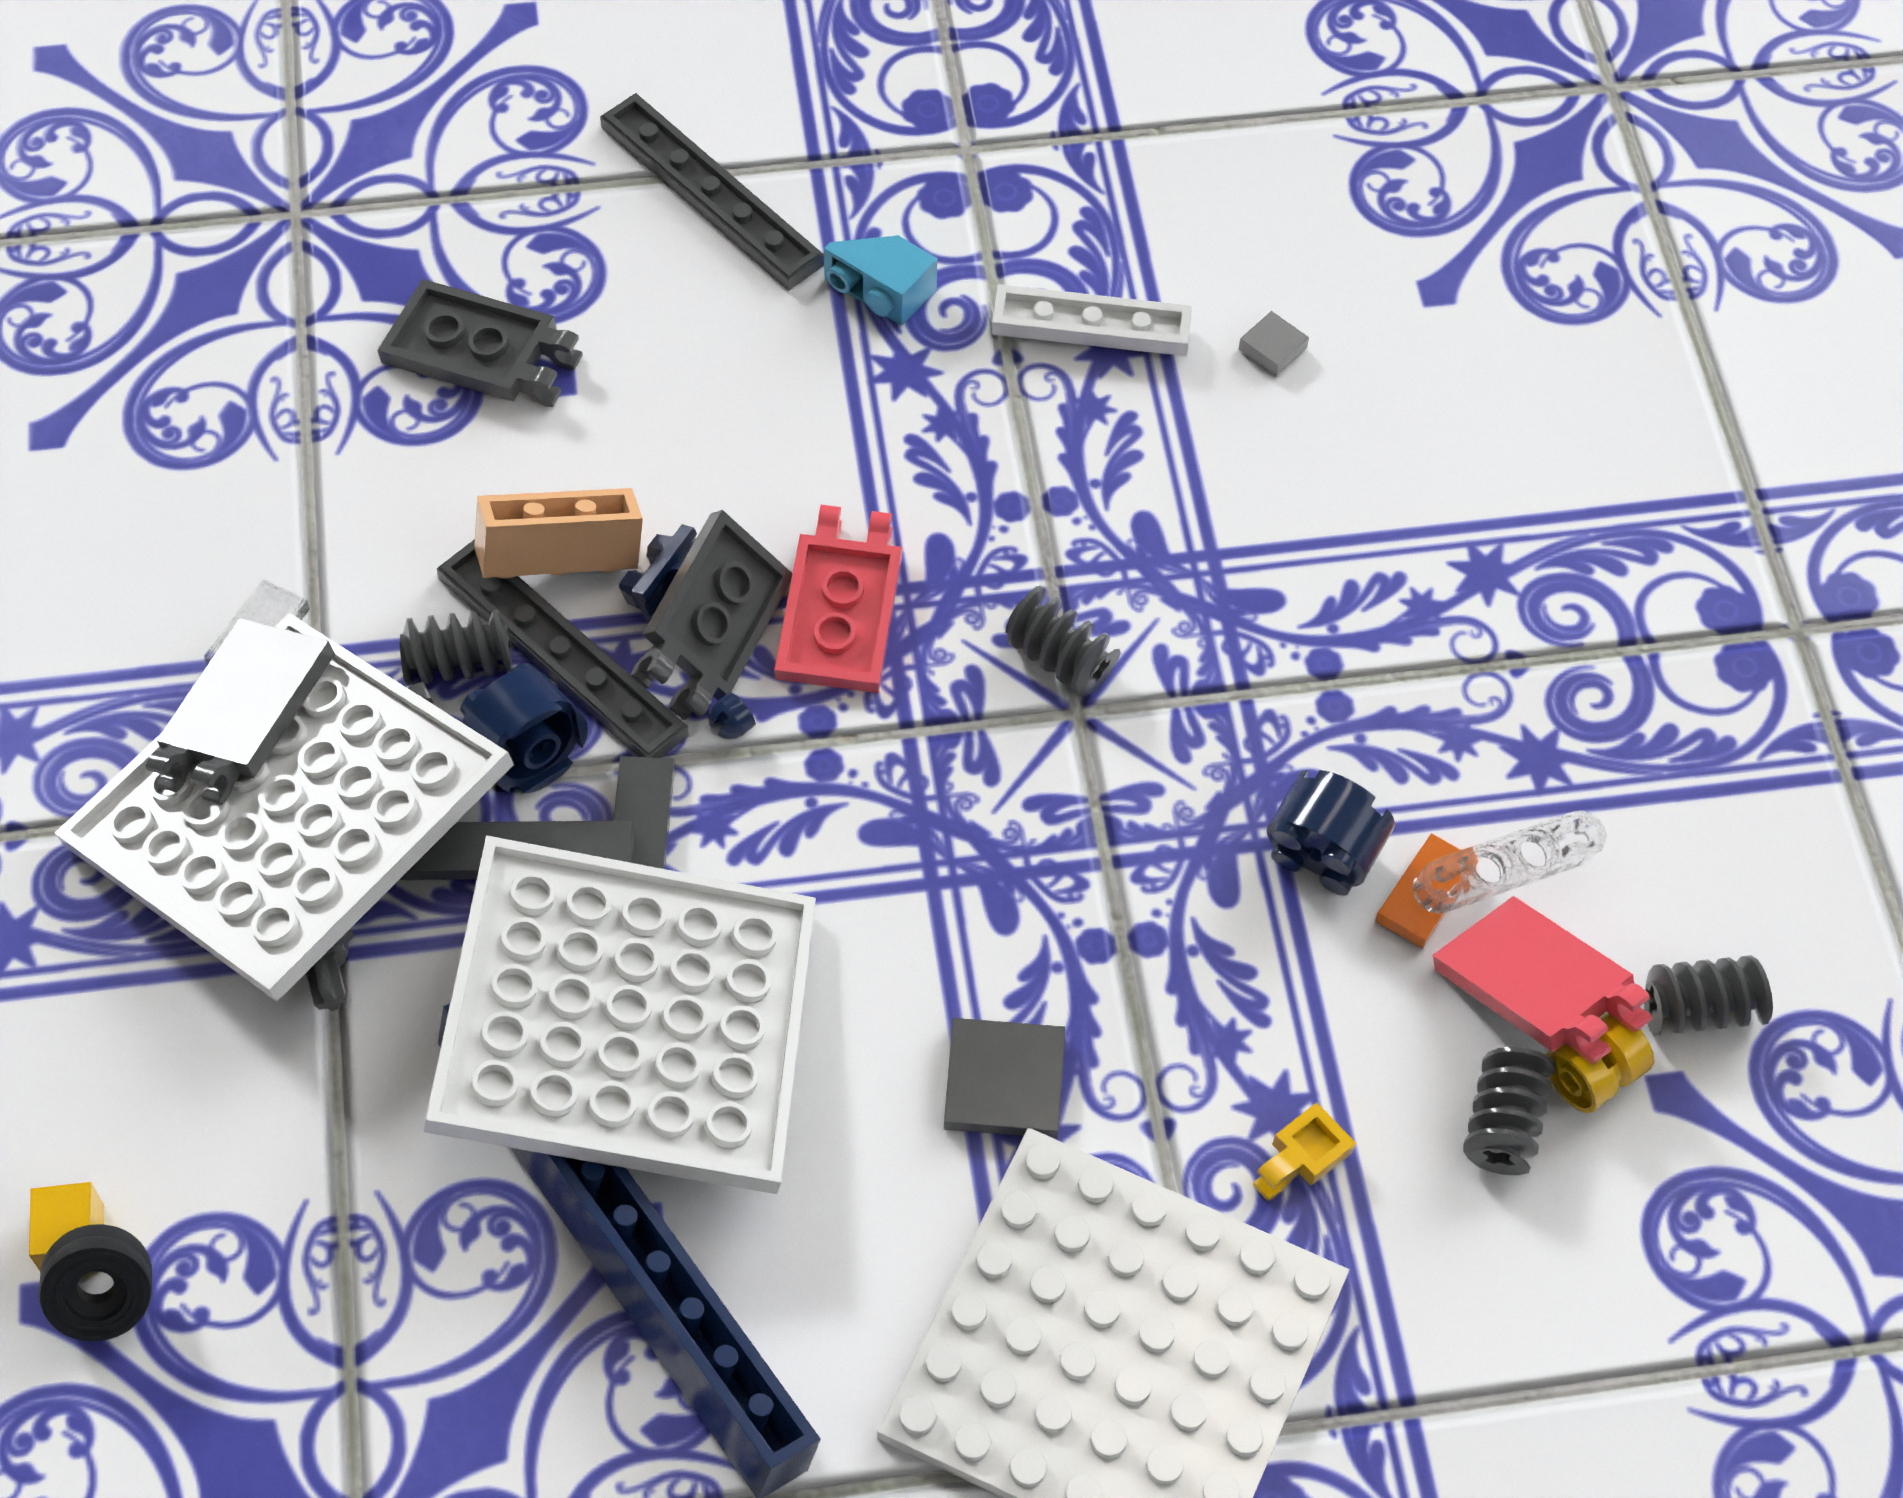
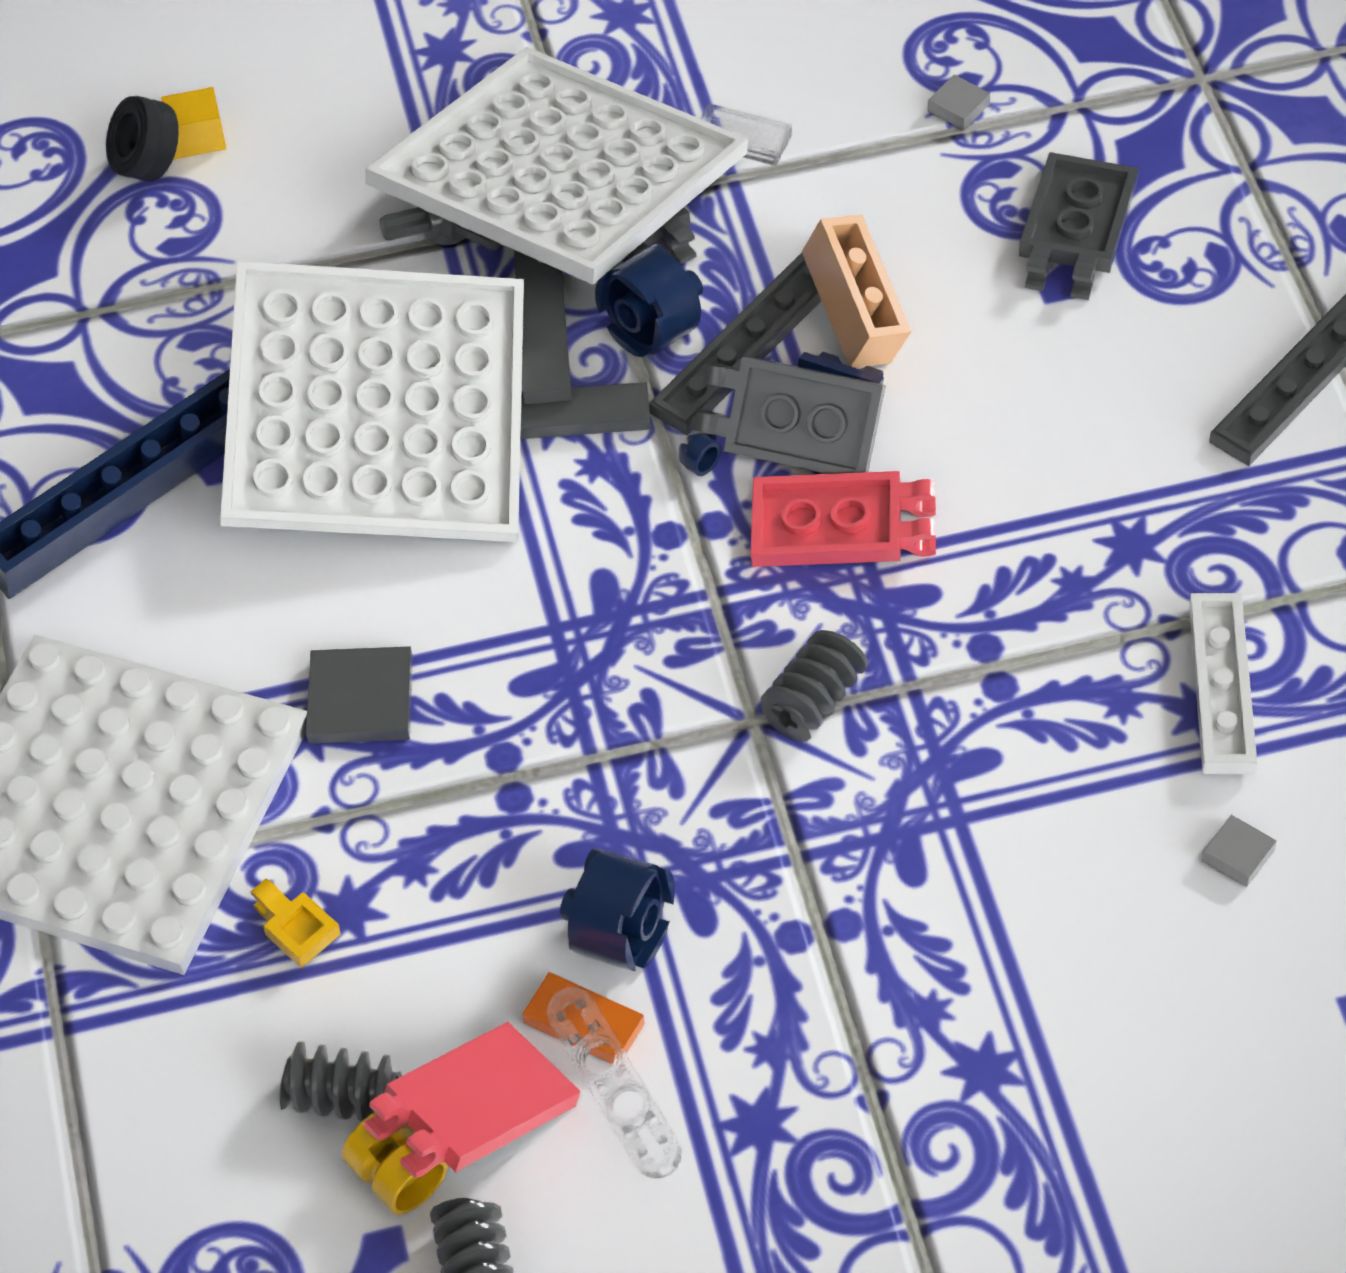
camera: 90 degrees right, 5 degrees down
(239, 708) = (638, 116): tile -> none
(271, 422) = (959, 102): none -> light grey tile
(455, 647) = (735, 252): dark grey piece -> none
(883, 274) = (1230, 505): medium azure slope -> none

